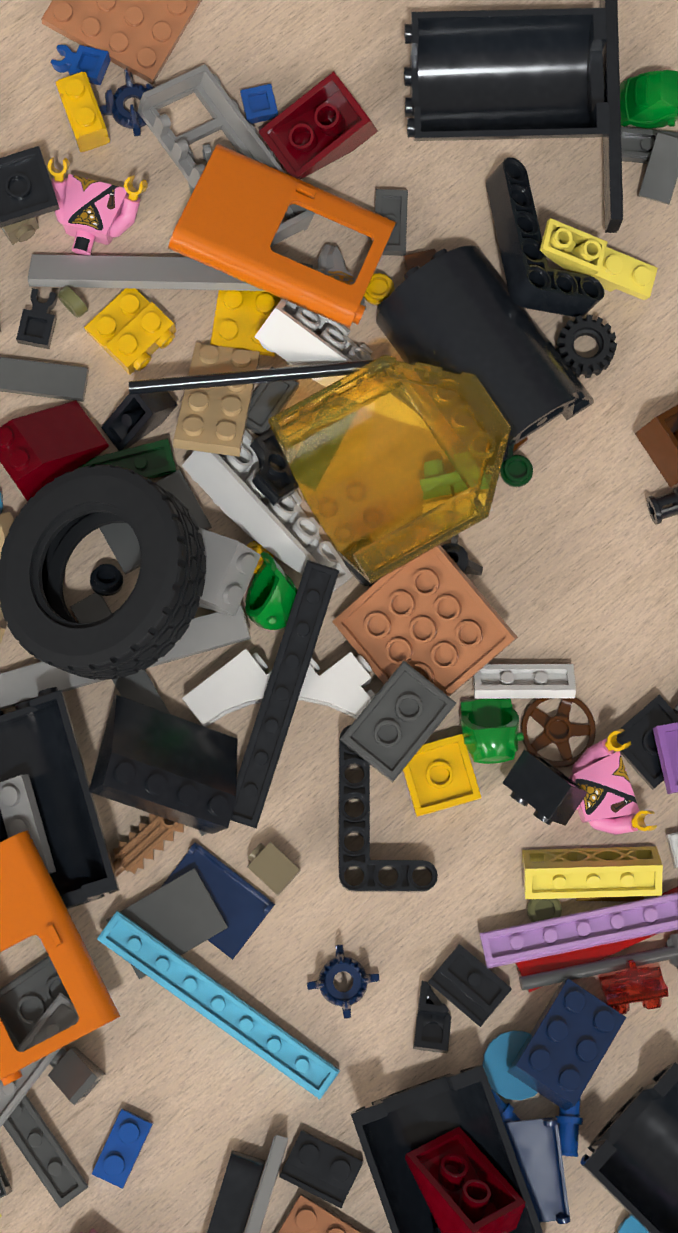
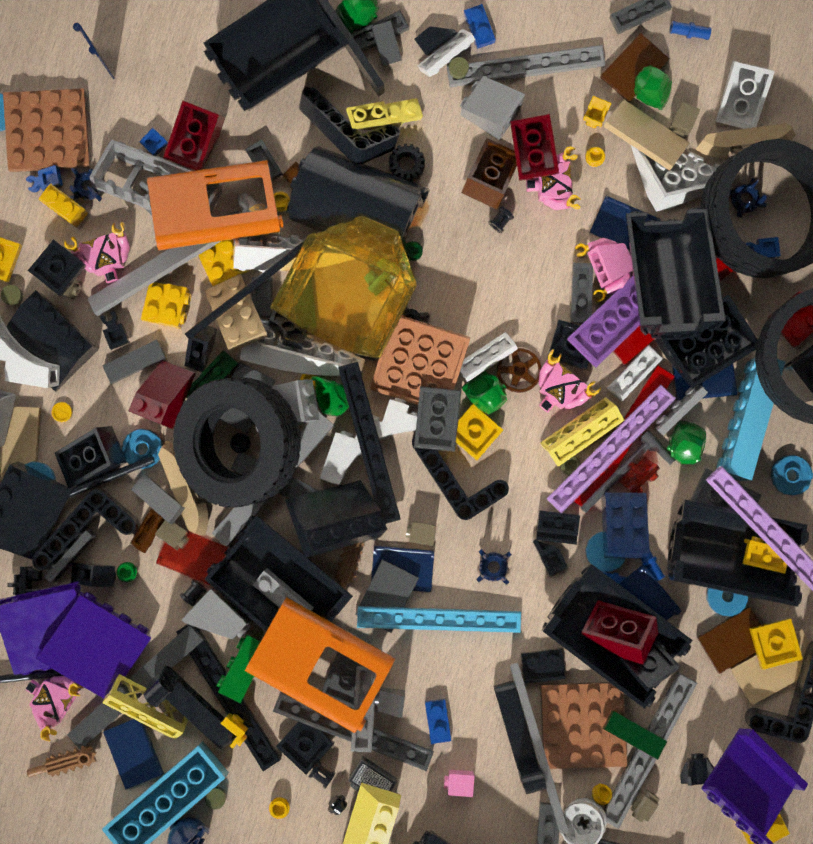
camera: 30 degrees left, 5 degrees up
(72, 302) = (125, 310): olive tile -> none
(544, 788) = (532, 404): black brick -> none

